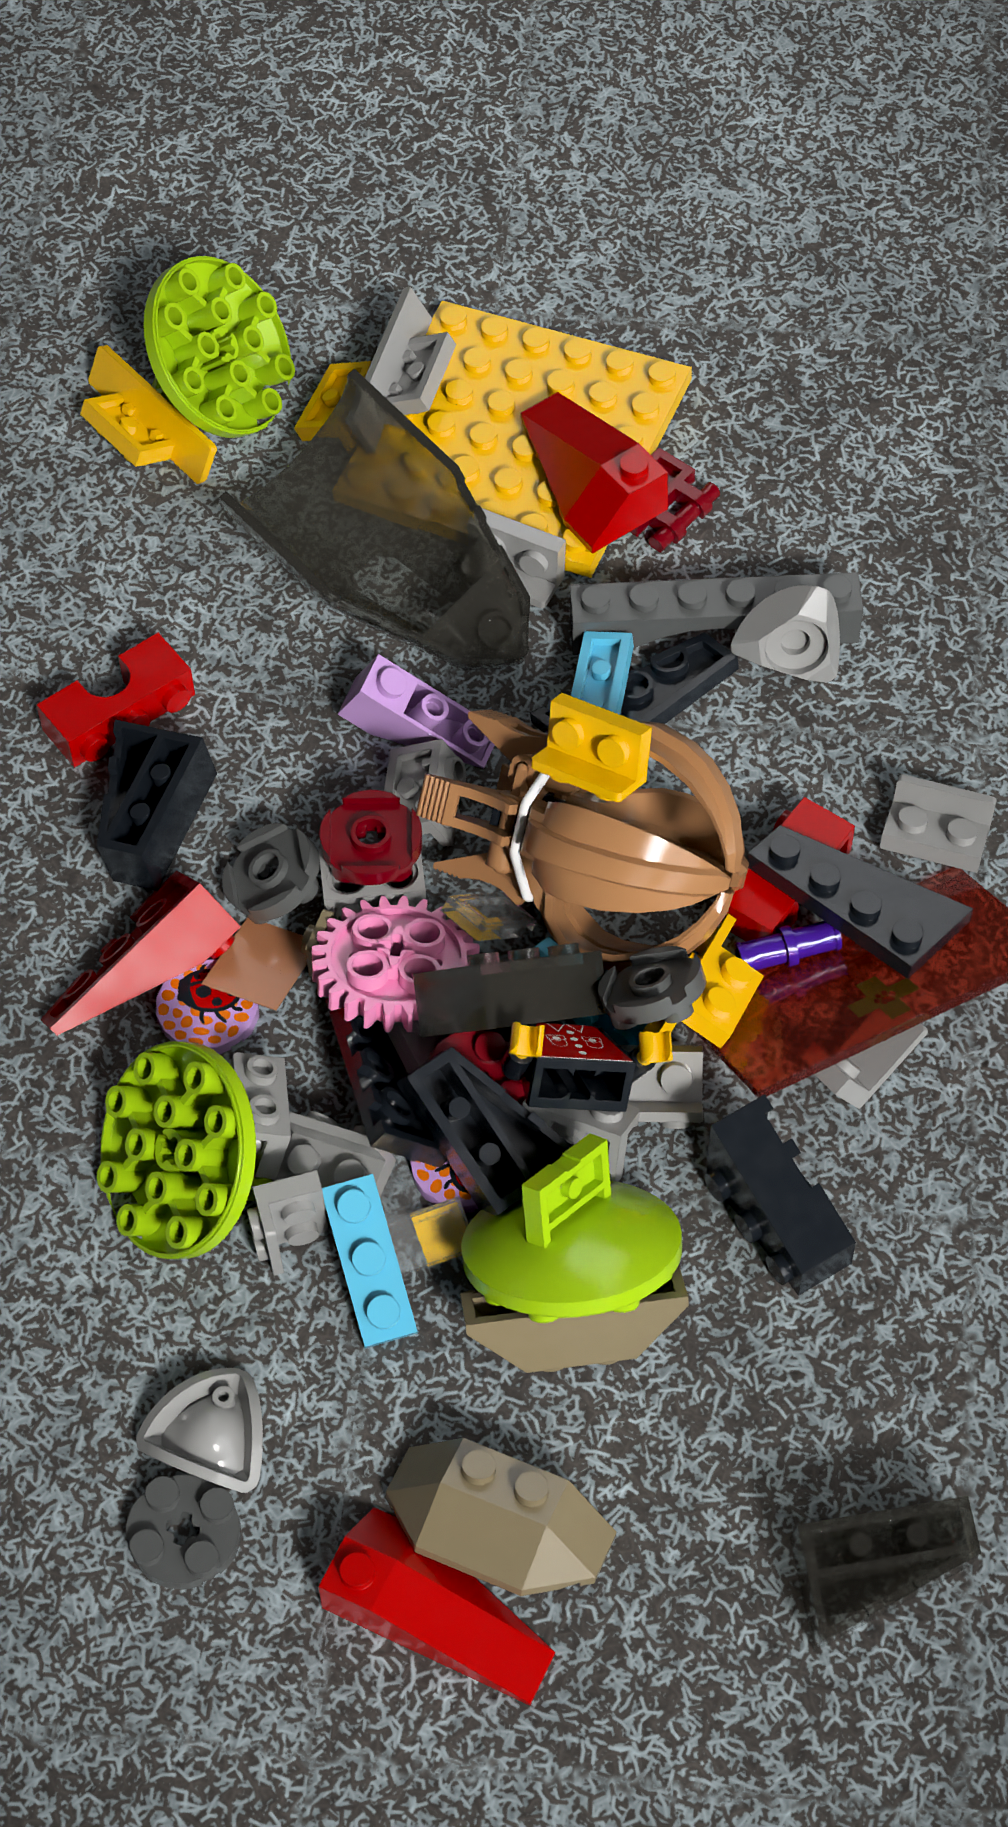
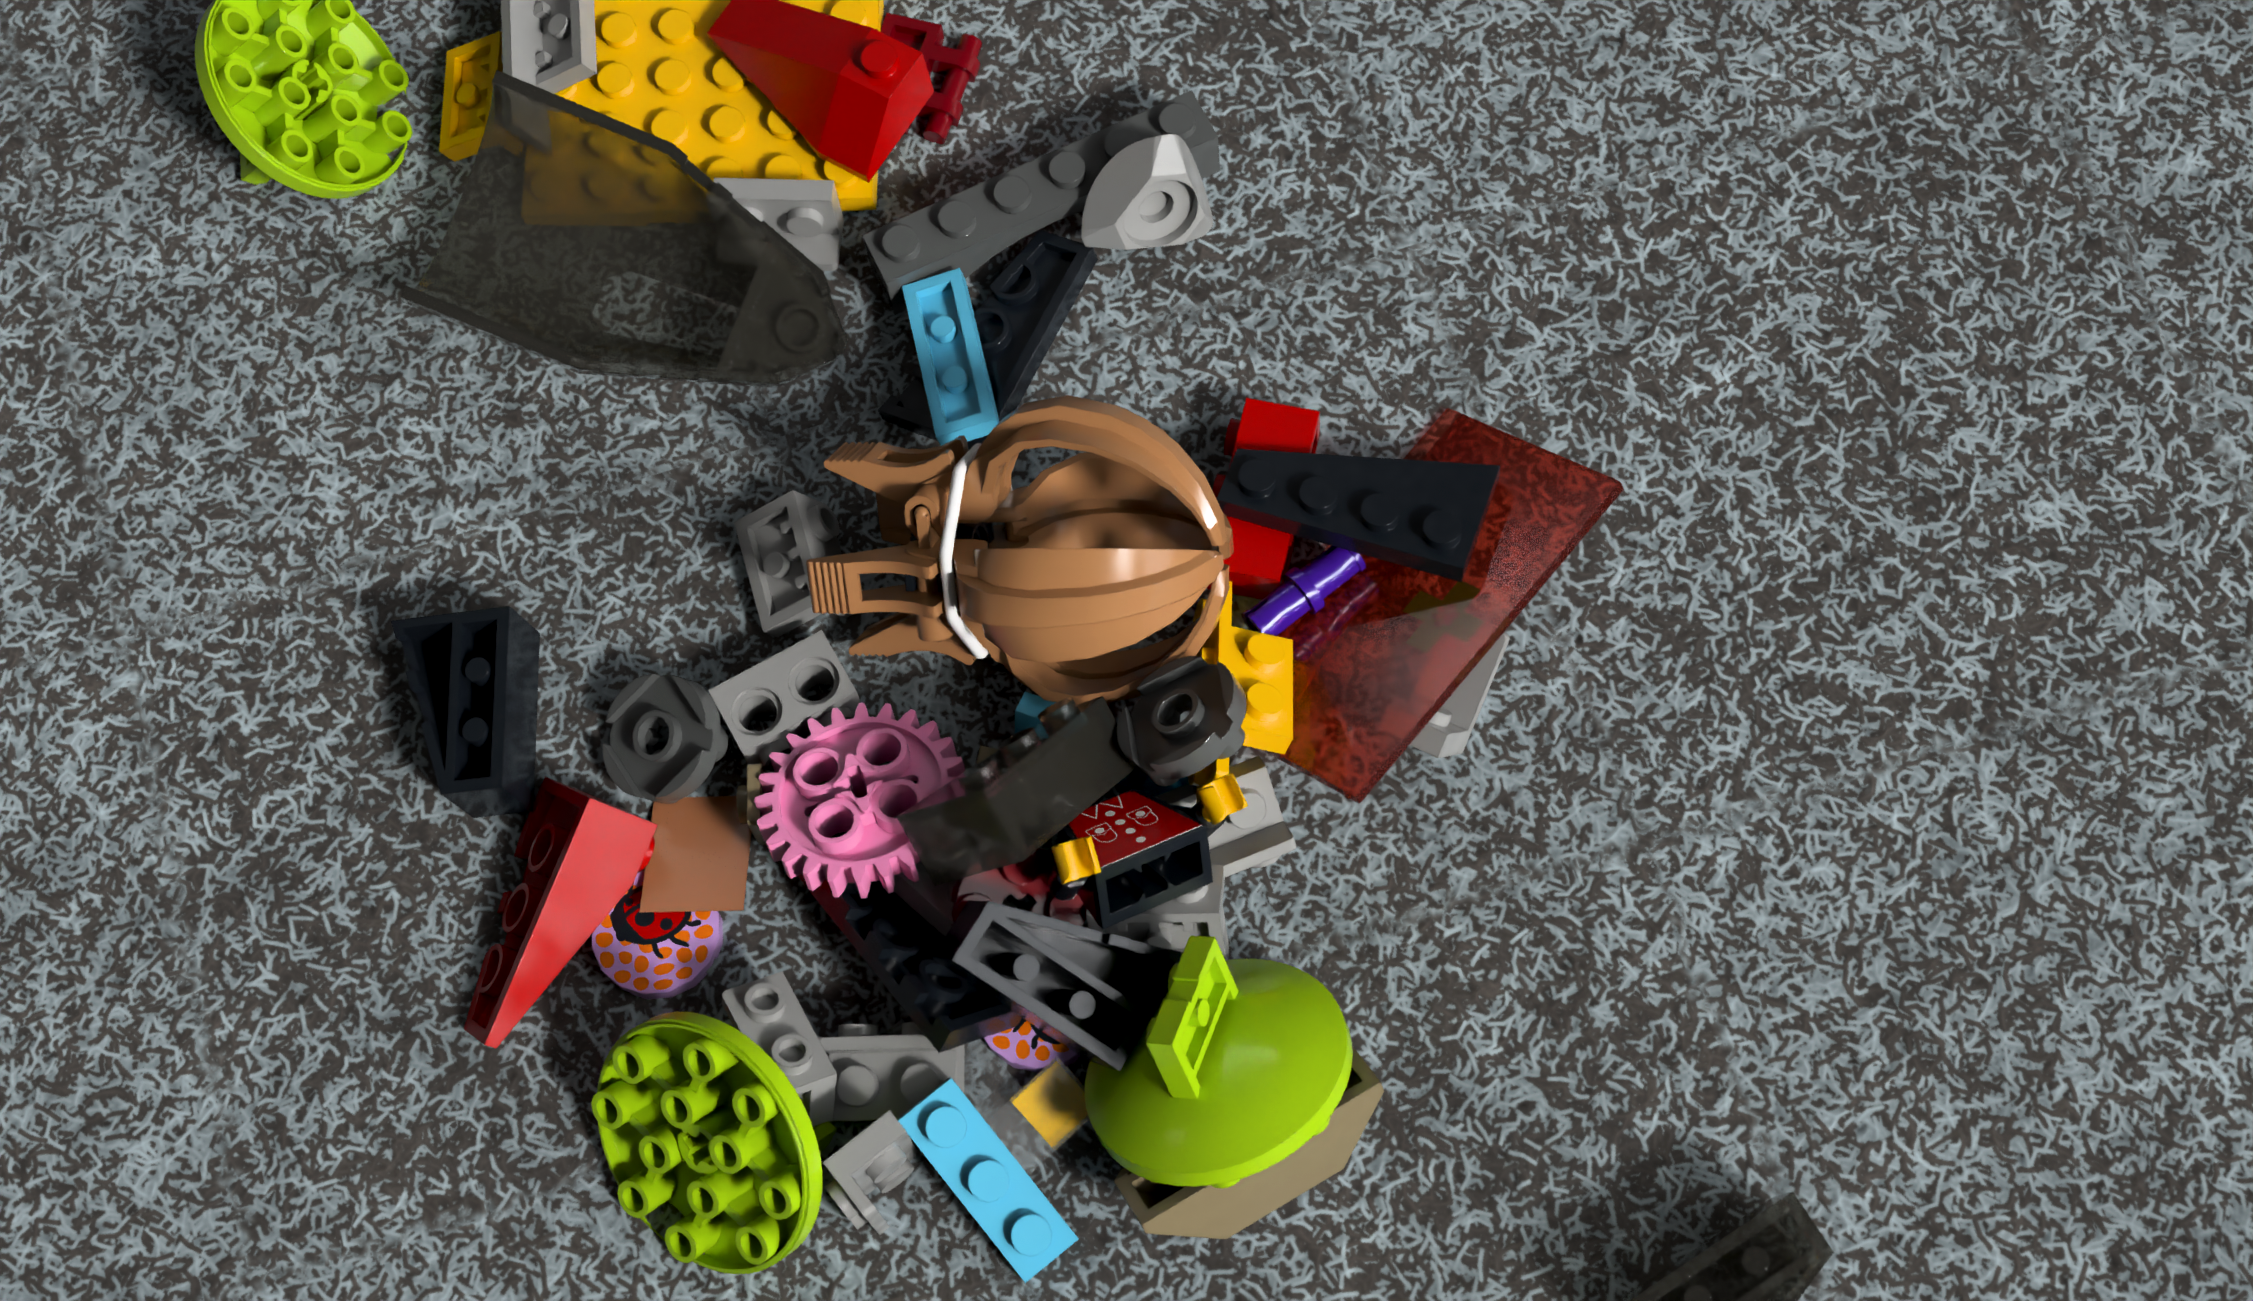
camera: 15 degrees left, 10 degrees up
(84, 723) = (356, 633): red arch -> none
(142, 420) = (248, 212): yellow bracket -> none
(377, 862) = (771, 689): dark red plate -> none
(410, 712) = (740, 466): lavender slope -> none
(489, 916) = (943, 693): clear tile -> none
(594, 749) = (1004, 466): yellow bracket -> none
(775, 1200) = (1422, 912): black wedge -> none
(938, 823) = (1408, 366): light grey bracket -> none

